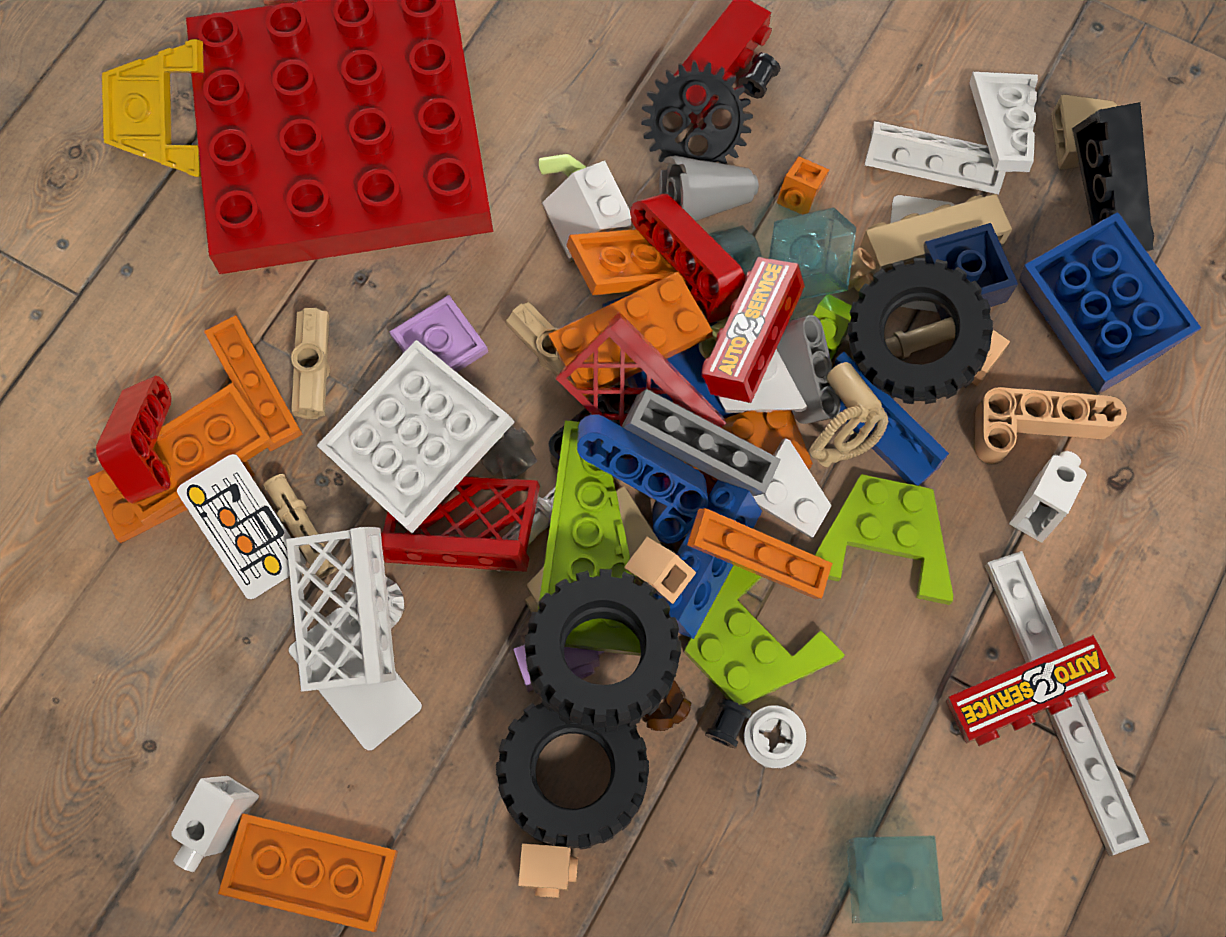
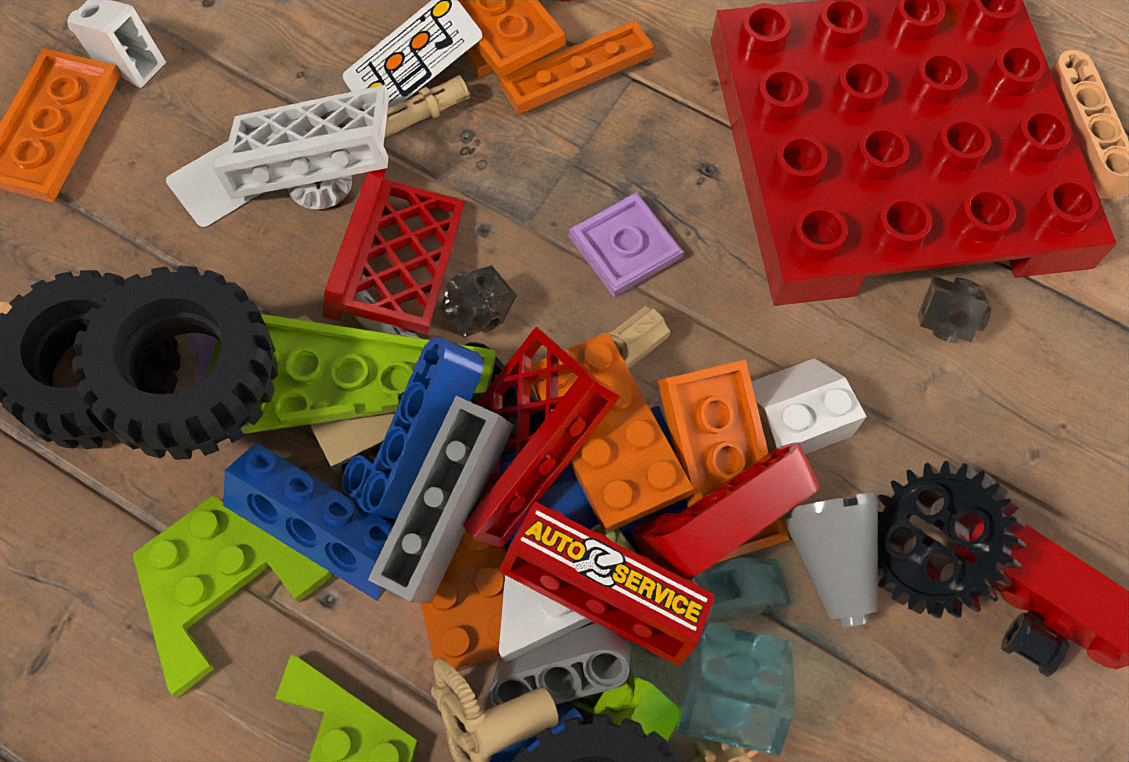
camera: 90 degrees right, 5 degrees down
(310, 382) = (597, 115): tan piece -> none
(415, 435) = (495, 205): white plate -> none
(503, 99) = (954, 309): none -> clear smoke brick
(560, 163) = (868, 378): yellowish green arm -> none
(660, 569) = (279, 442): light nougat brick -> none
(679, 708) = (133, 465): reddish brown piece -> none
(728, 723) = (111, 539): black bush -> none
(759, 553) = (297, 577): orange plate -> none
(791, 729) = (66, 608): white gear -> none
(794, 493) = (394, 639): white wing -> none
(802, 185) = (861, 695): orange bracket -> none

